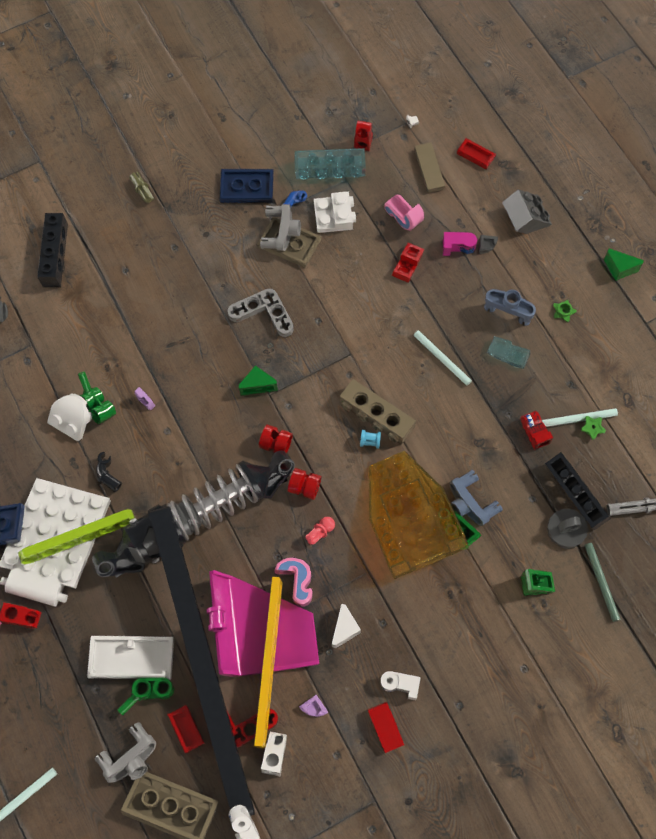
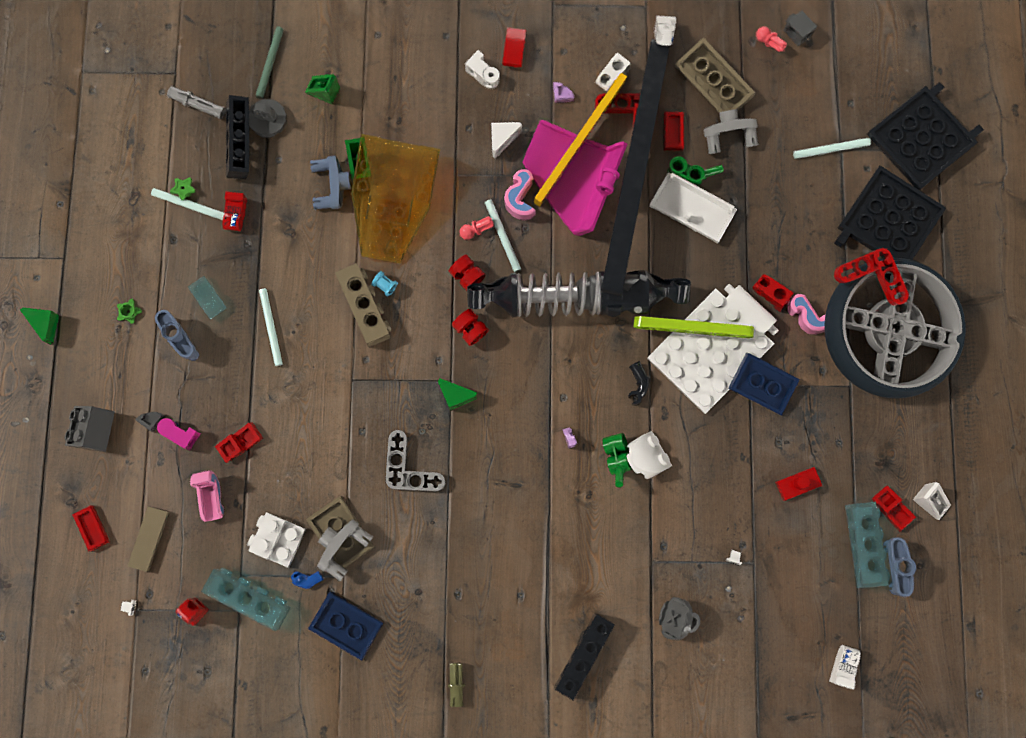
camera: 155 degrees left, 10 degrees up
(293, 537) = (503, 236): none -> light aqua bar

